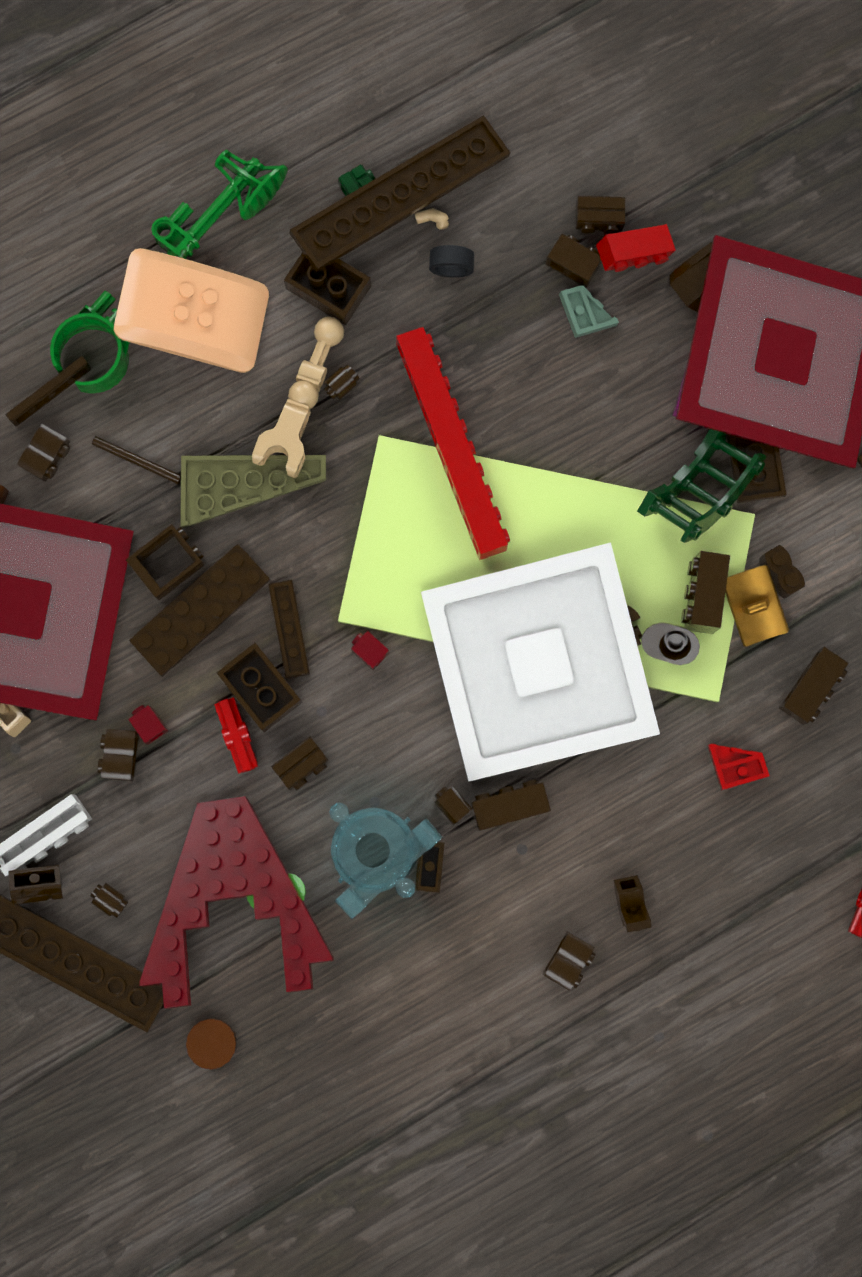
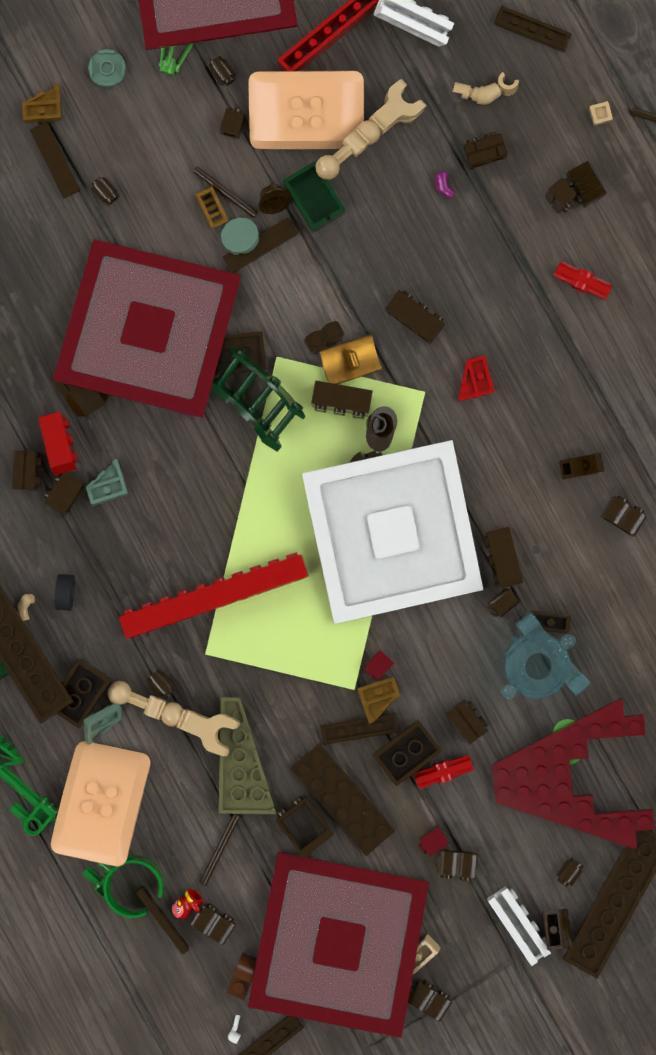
camera: 85 degrees left, 5 degrees up
(68, 420) = (184, 905): none -> red animal
(292, 310) = (101, 721): none -> sand green wing
(328, 650) = (378, 697): none -> pearl gold wing

